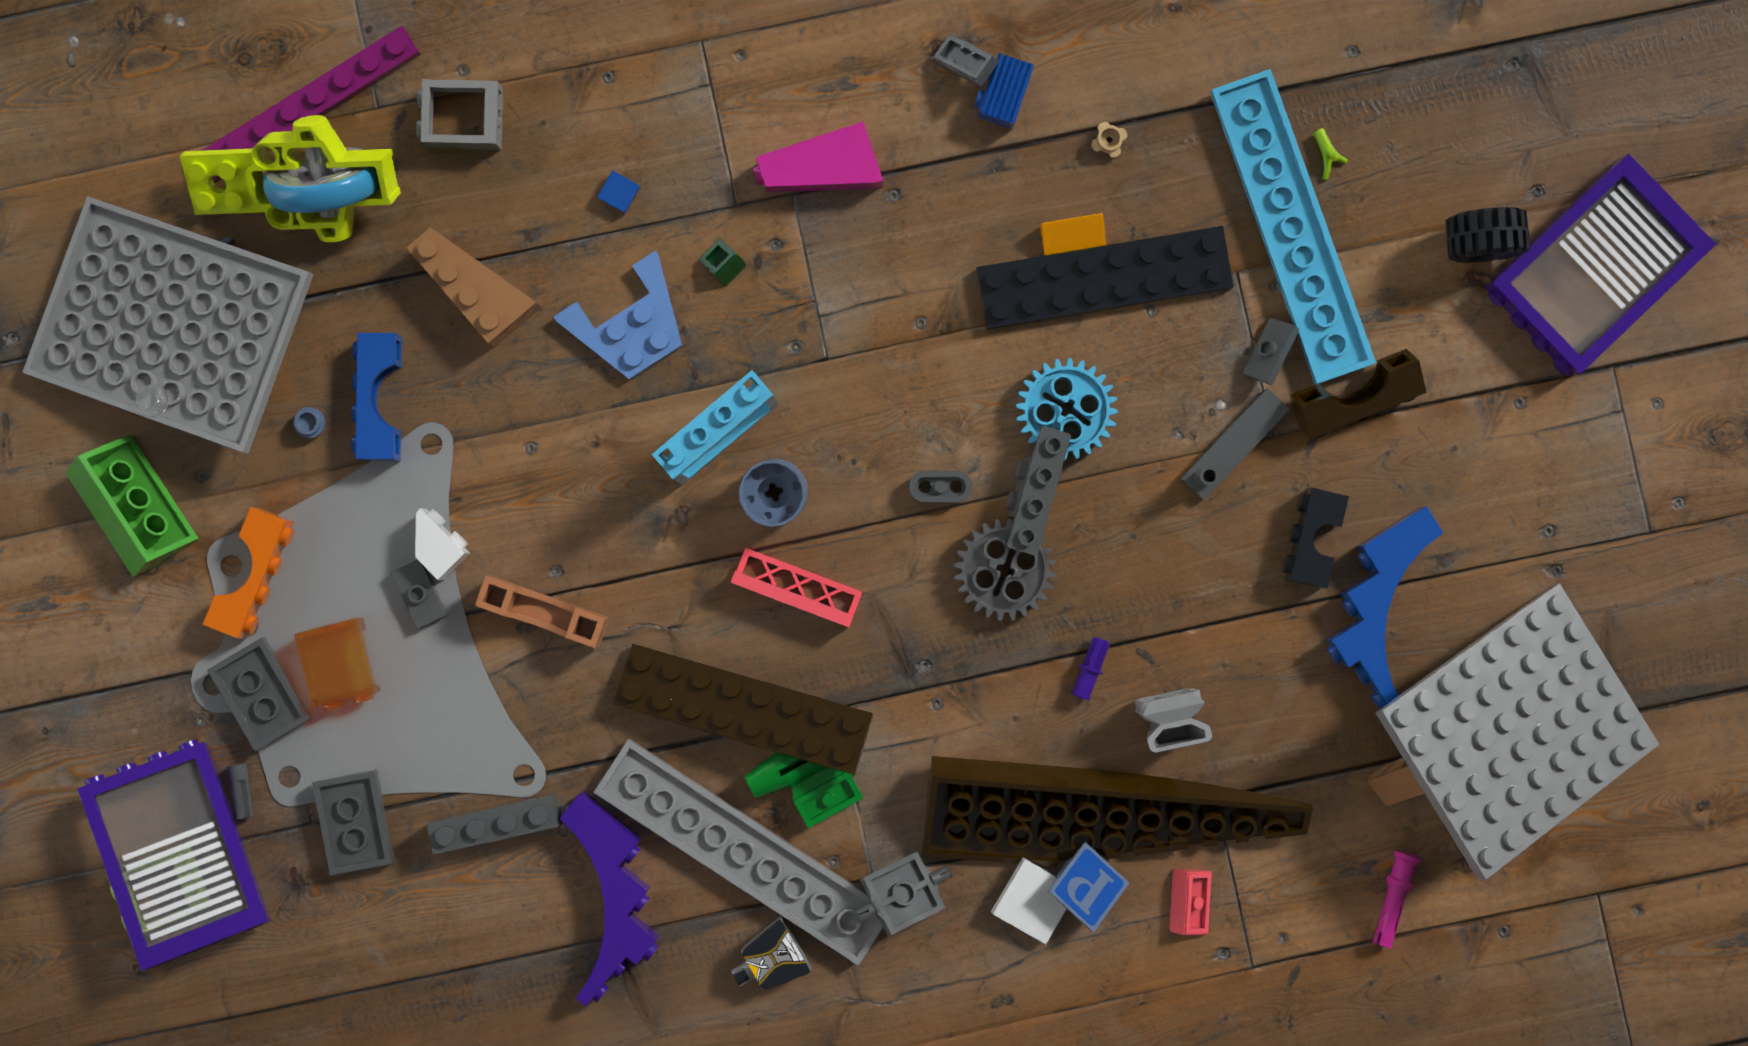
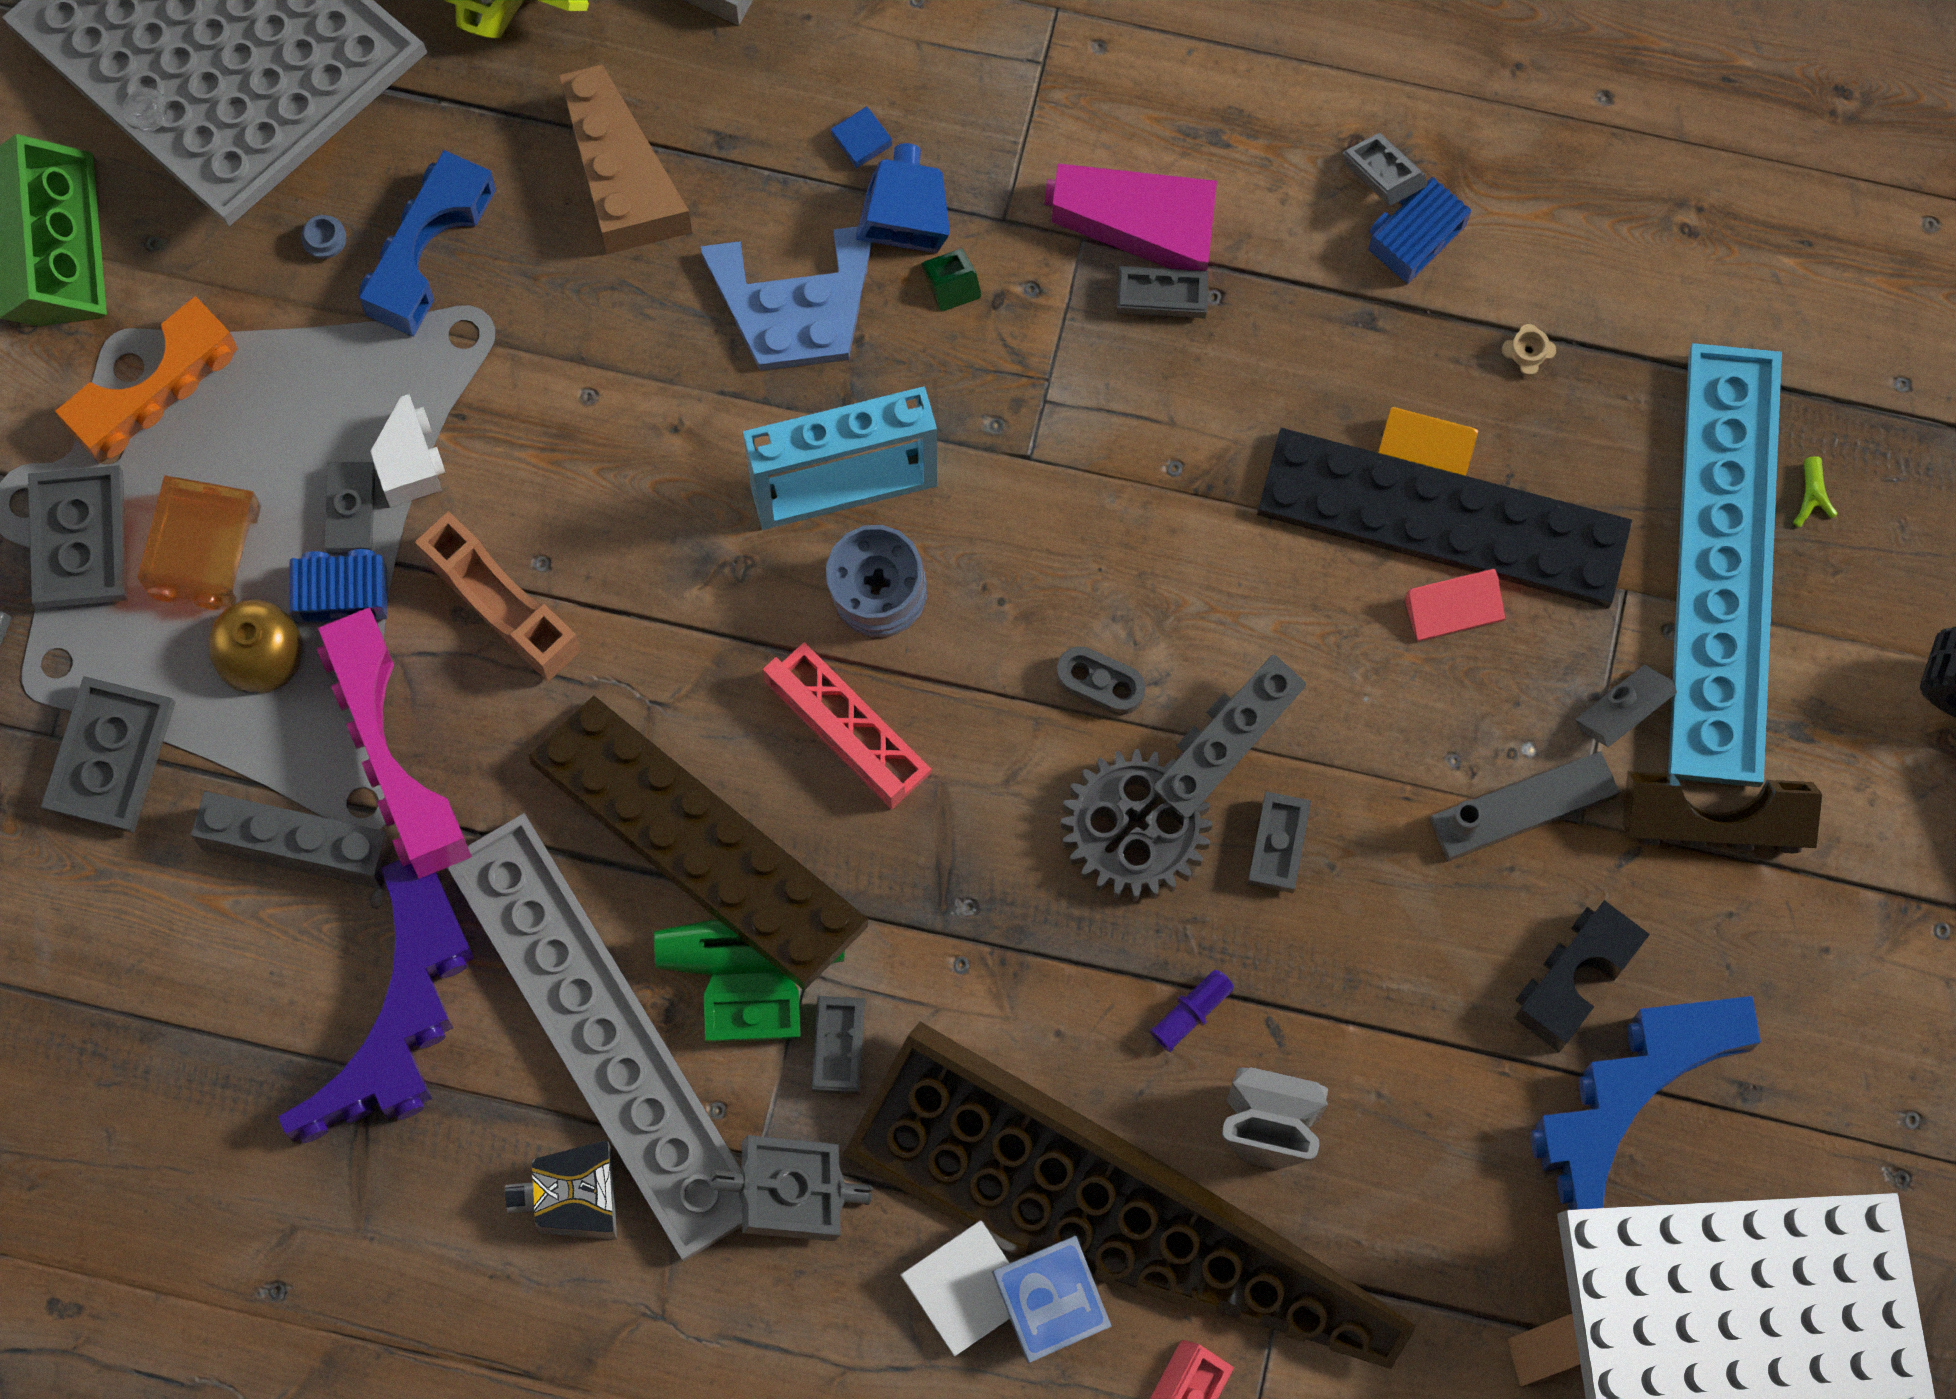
camera: 25 degrees right, 15 degrees down
(407, 711) = (255, 646): none -> pearl gold cylinder
(440, 650) = (335, 587): none -> blue brick
(480, 695) = (424, 819): none -> dark pink arch
(669, 228) = (905, 204): none -> blue torso
(861, 210) = (1162, 292): none -> dark grey plate
(888, 791) = (838, 1045): none -> dark grey plate
(1082, 384) = (1352, 637): medium azure gear -> none
(1096, 539) = (1279, 842): none -> dark grey plate
(1137, 334) = (1455, 605): none -> coral slope

